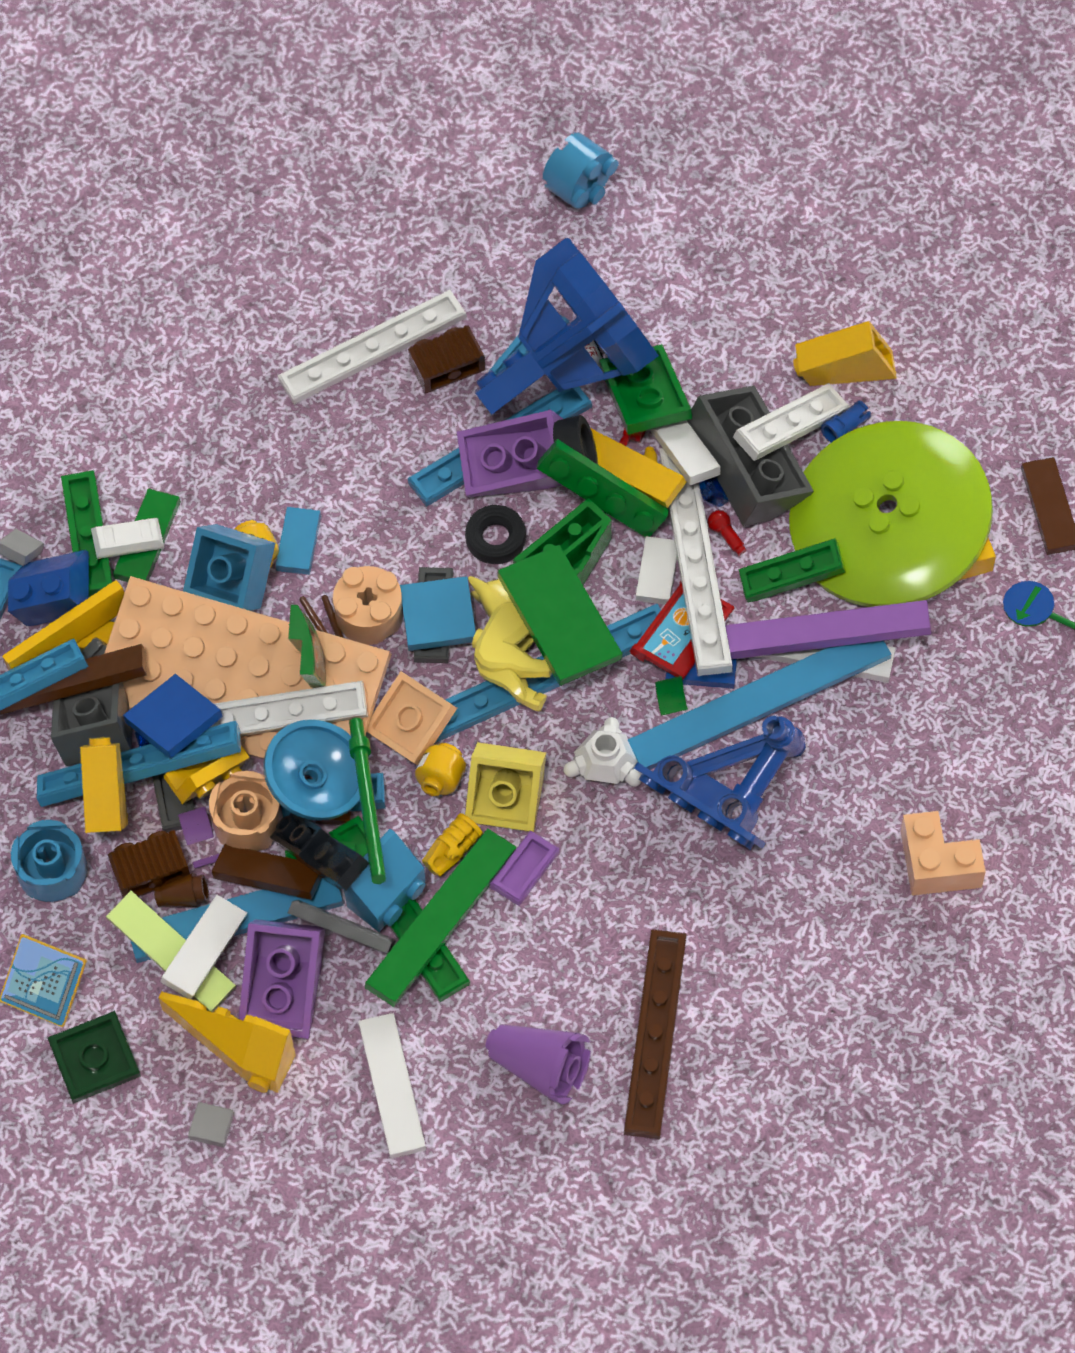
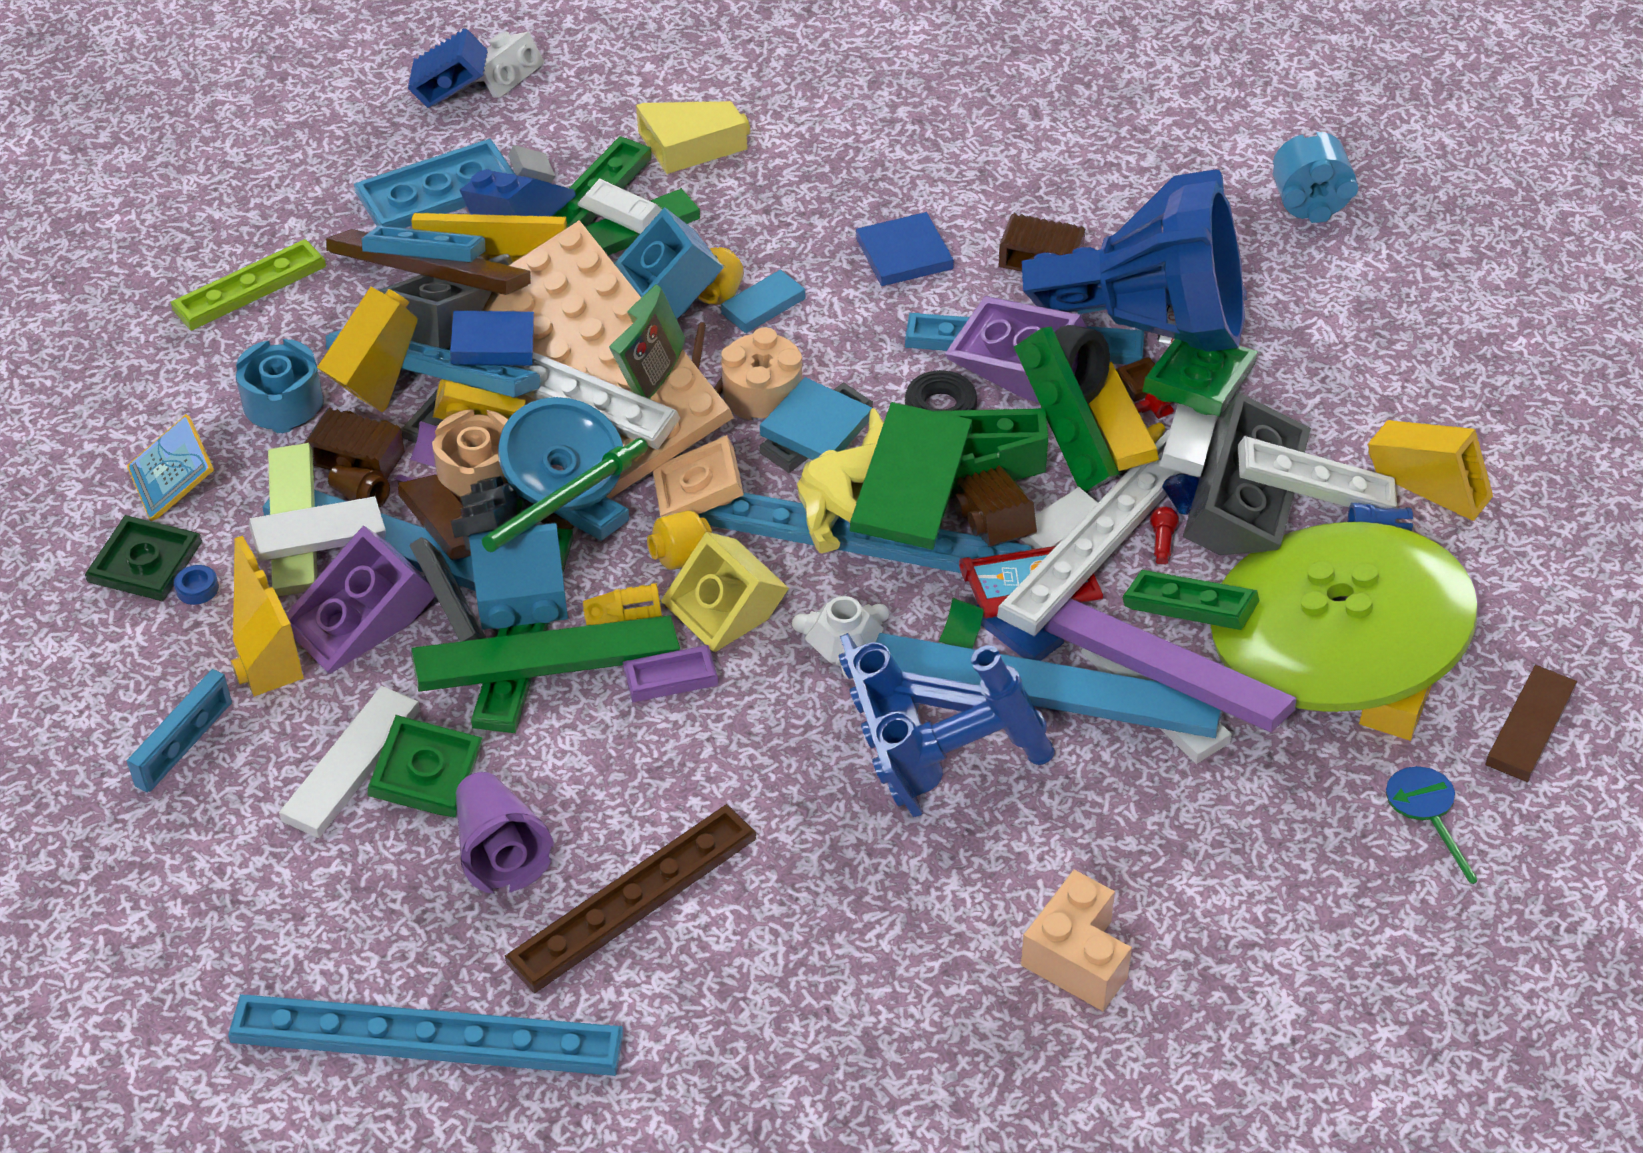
camera: 40 degrees right, 15 degrees down
(106, 435) = (691, 132): none -> light yellow slope
(152, 1047) = (196, 584): none -> blue tile
(211, 1124) = (168, 677): light grey tile -> none
(268, 1153) = (179, 731): none -> dark azure tile
(350, 426) = (904, 249): none -> blue tile
(371, 347) = (984, 204): white tile -> none
(445, 1052) = (423, 766): none -> green tile
(604, 418) = (1134, 376): none -> reddish brown tile
(619, 592) = (995, 506): none -> reddish brown brick
(626, 1216) = (427, 1034): none -> dark azure tile

